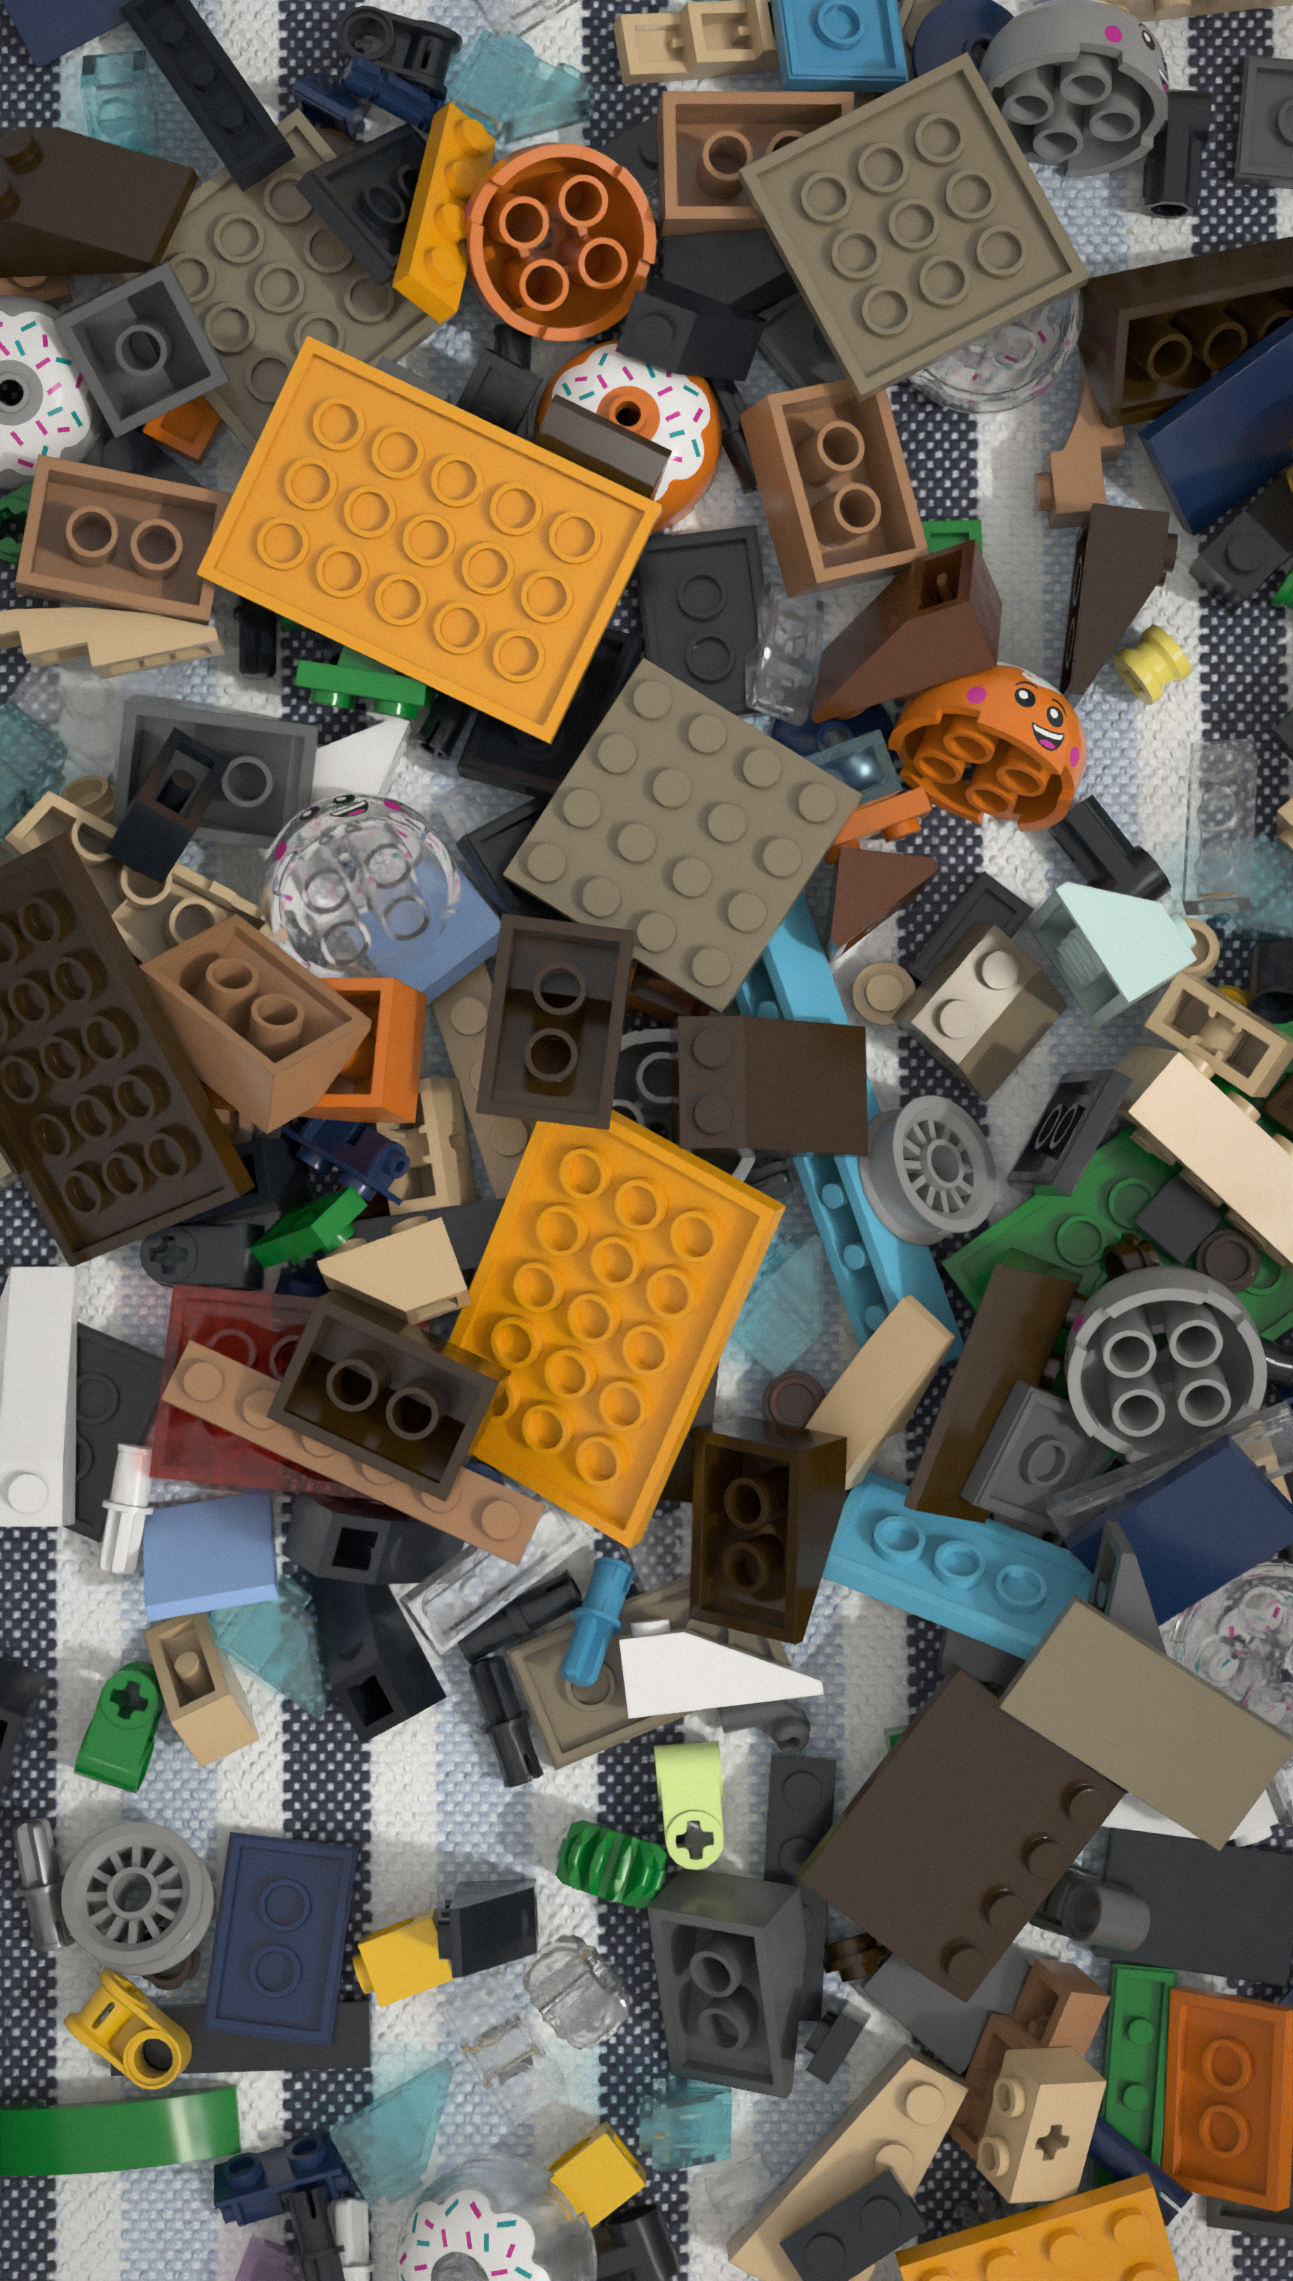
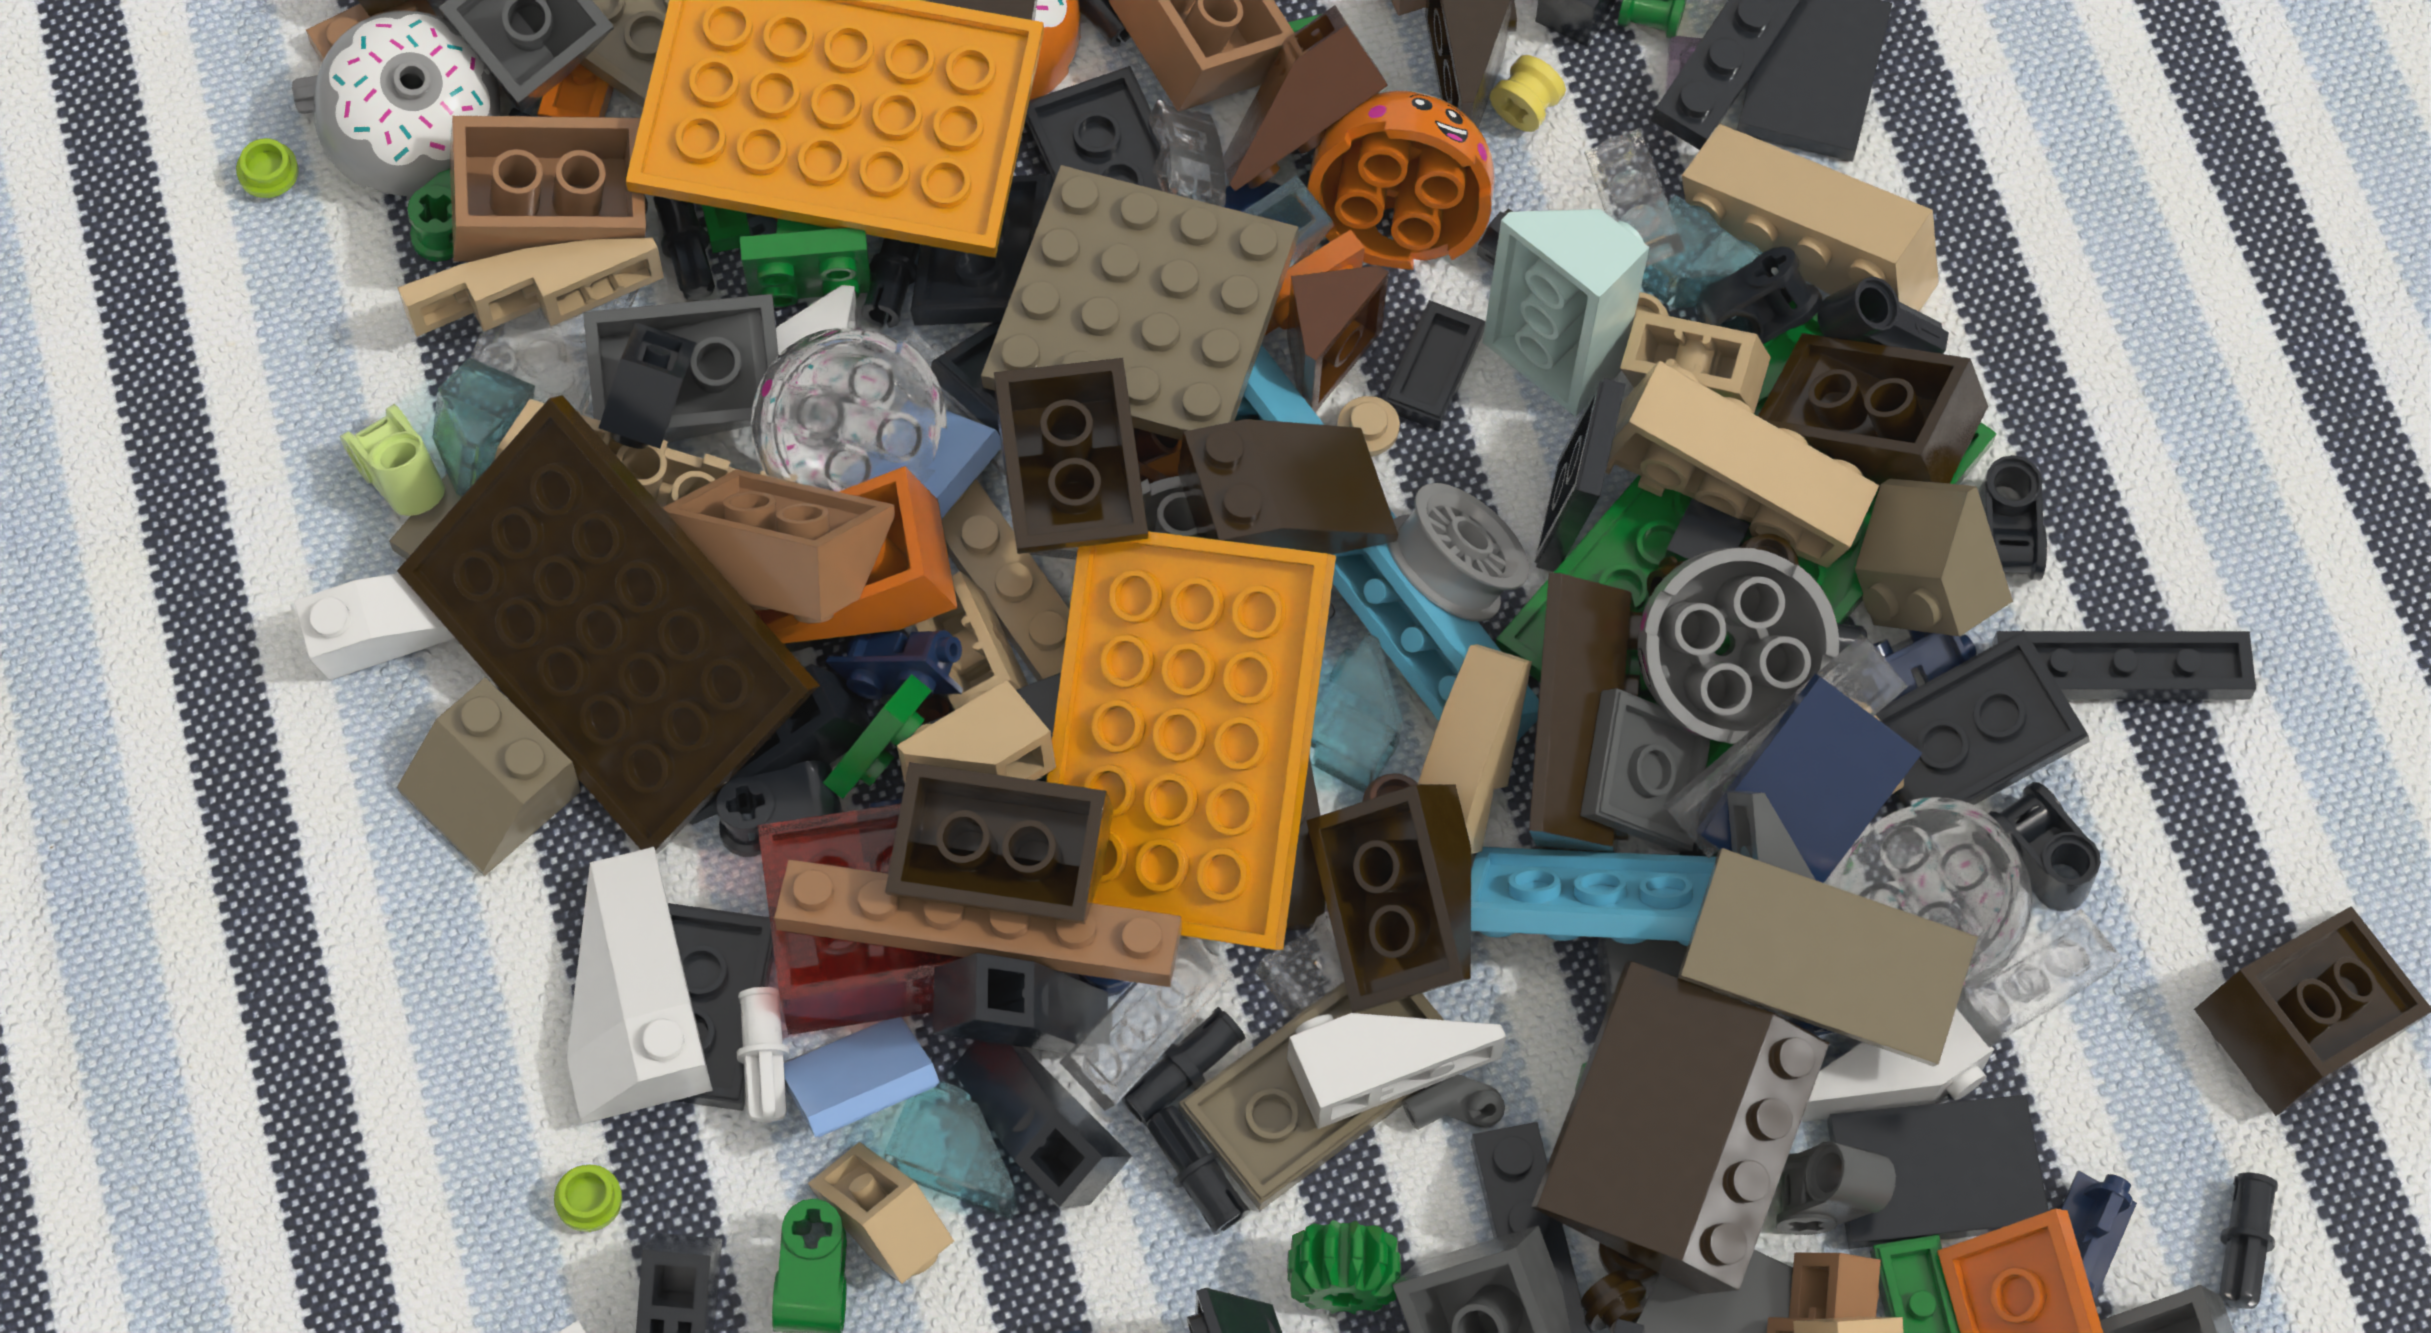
camera: 15 degrees left, 20 degrees down
(597, 1621) = (1261, 1039): dark azure axle -> none
(689, 1791) = (1404, 1189): yellowish green piece -> none
(982, 1008) = (1466, 409): dark tan slope -> none

